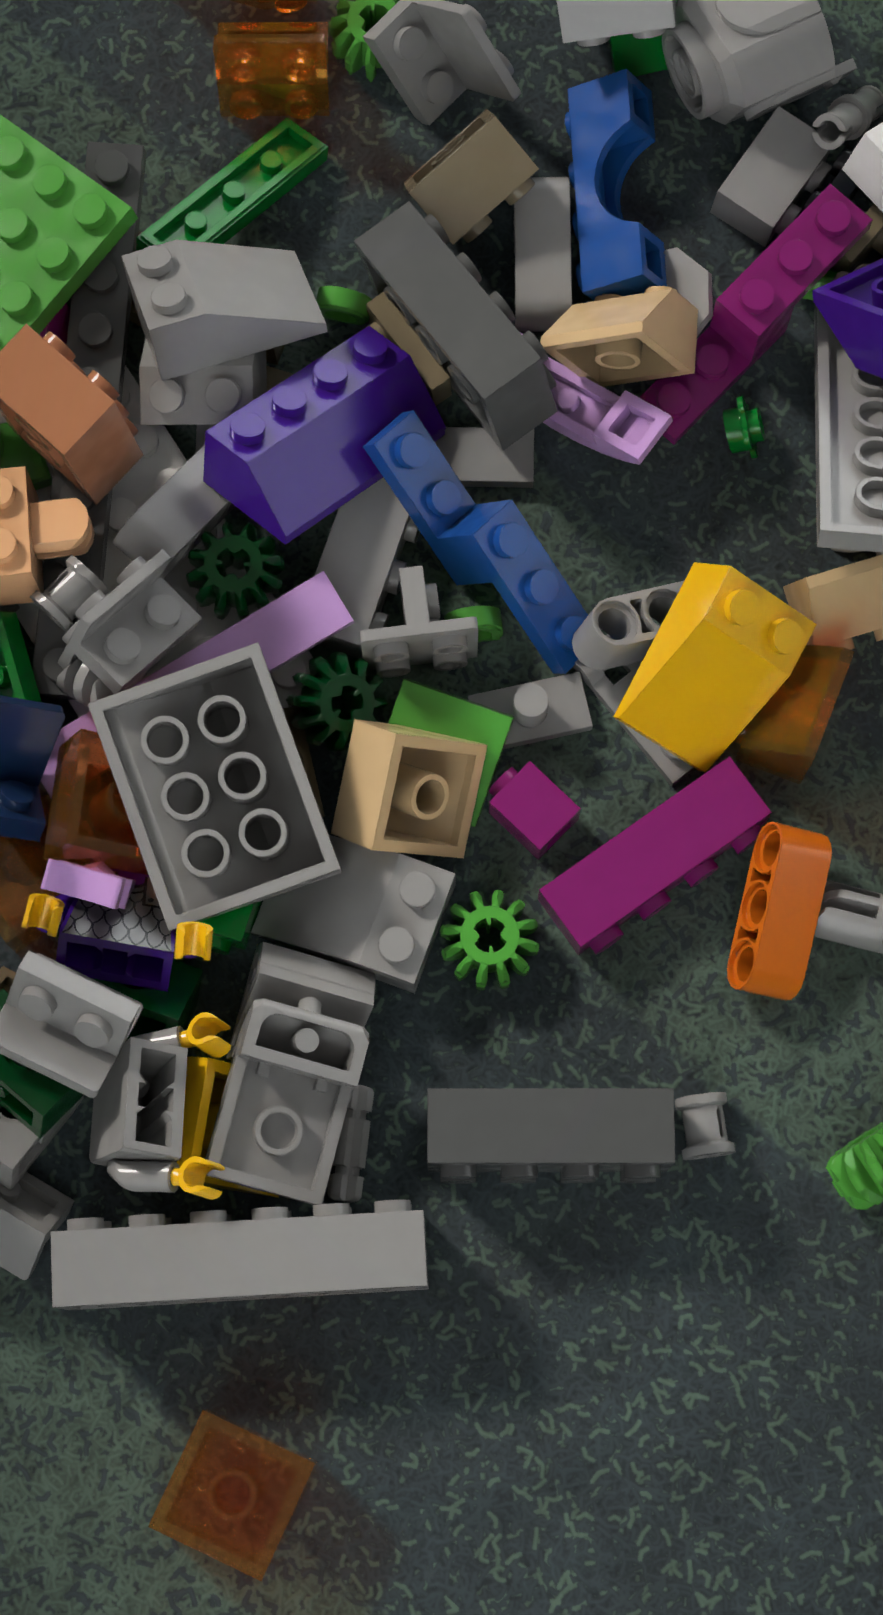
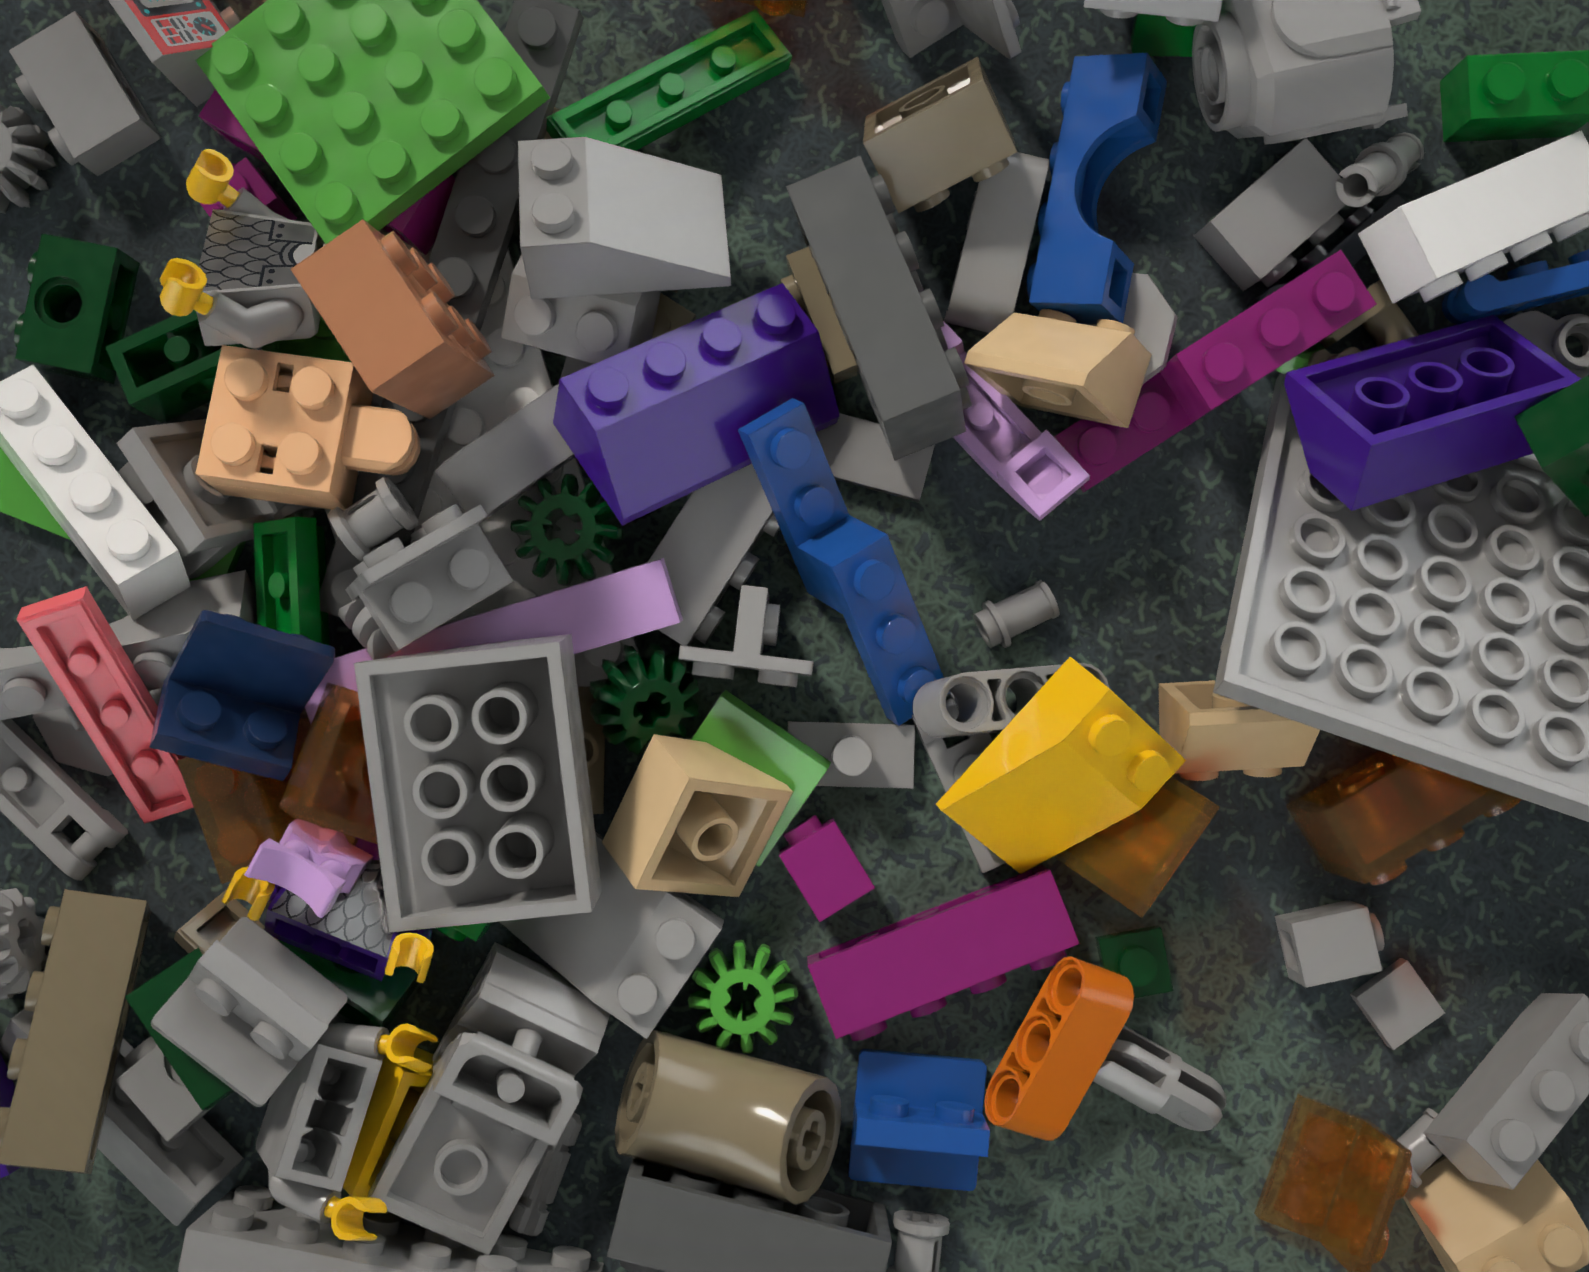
camera: 10 degrees right, 10 degrees up
(343, 304) = (762, 245): bright green tile -> none
(488, 620) = (813, 646): bright green tile -> none
(503, 1035) = (728, 1117): none -> dark tan brick
(642, 557) = (1016, 614): none -> light grey pin
(674, 1013) = (918, 1120): none -> blue bracket
(743, 427) = (1164, 496): green plate -> none
(836, 821) = (1139, 957): none -> dark green plate

